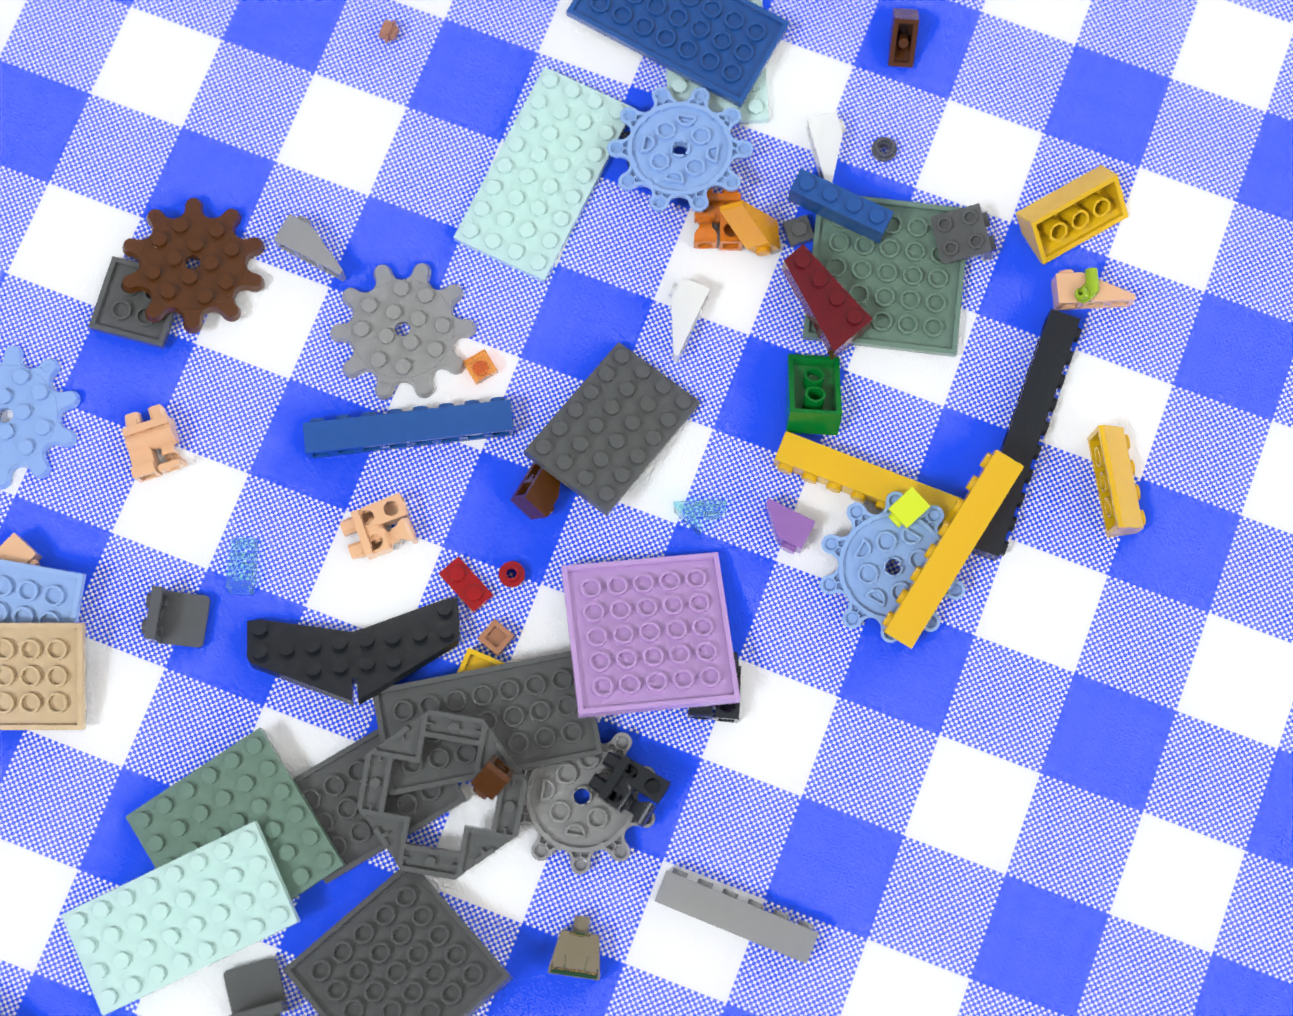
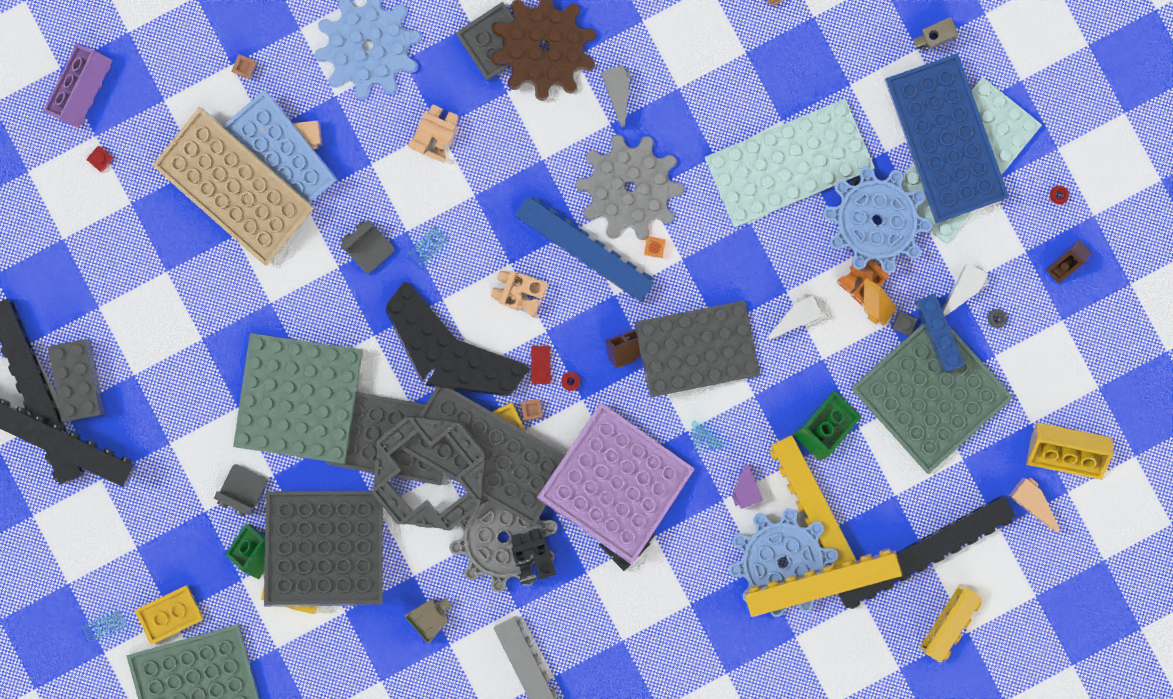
camera: 40 degrees right, 10 degrees up
(180, 918) = (235, 416): light aqua plate -> none
(491, 778) = (461, 490): reddish brown slope -> none
(825, 301) = (879, 383): dark red wedge -> none
(907, 508) = (818, 540): neon yellow brick -> none
(963, 234) = (994, 409): dark grey bracket -> none
(1090, 288) = (1034, 505): lime arm -> none

